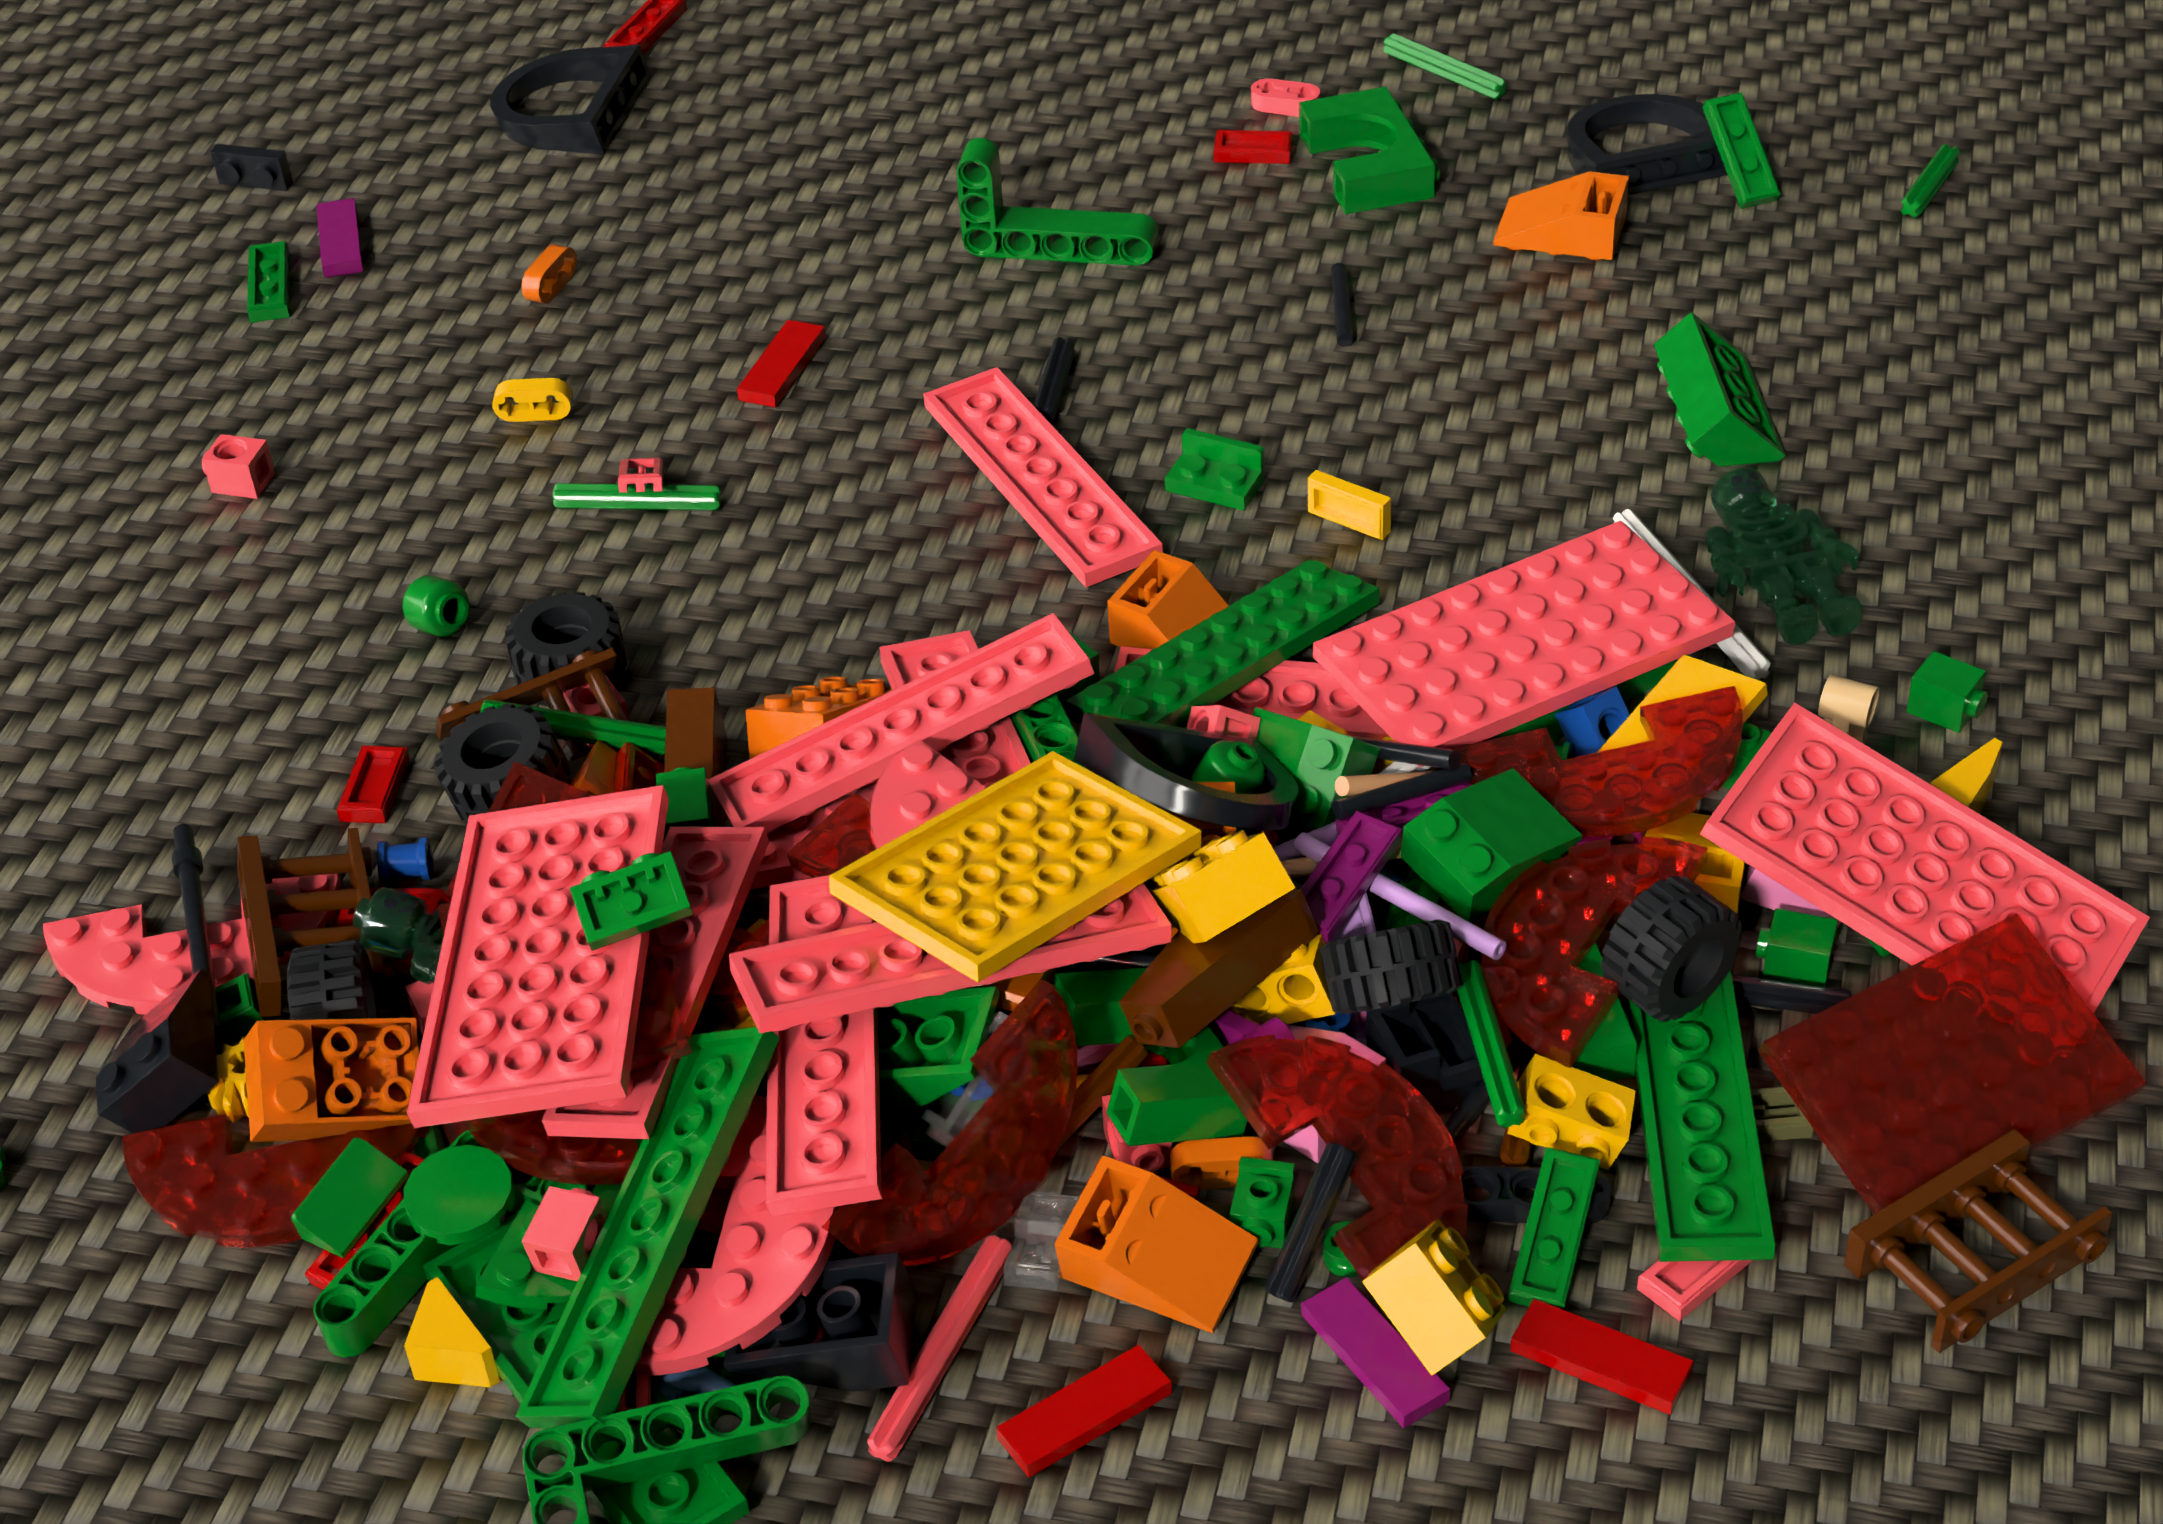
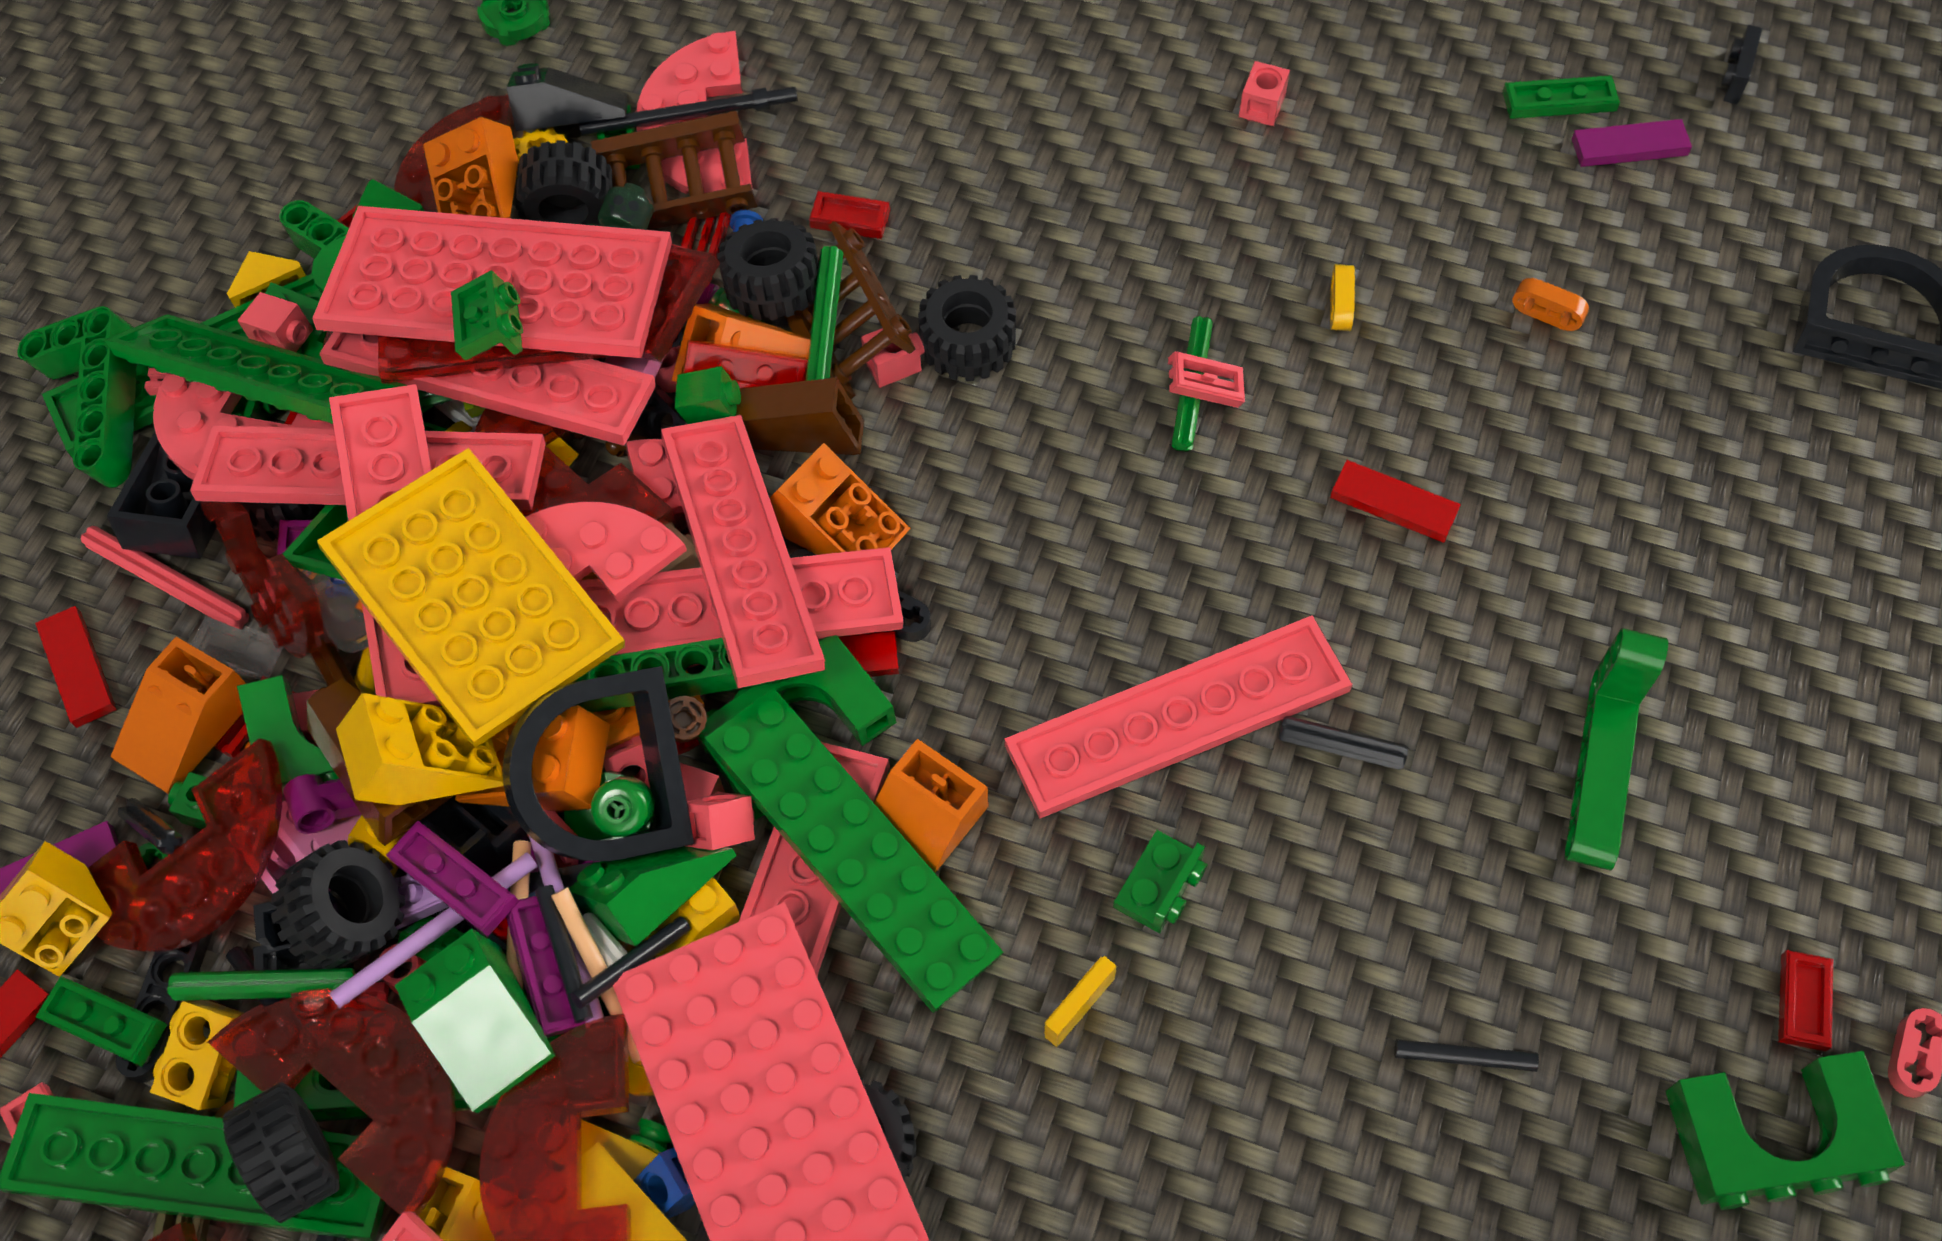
camera: 95 degrees right, 20 degrees up
(436, 605) = (1048, 238): green head -> none

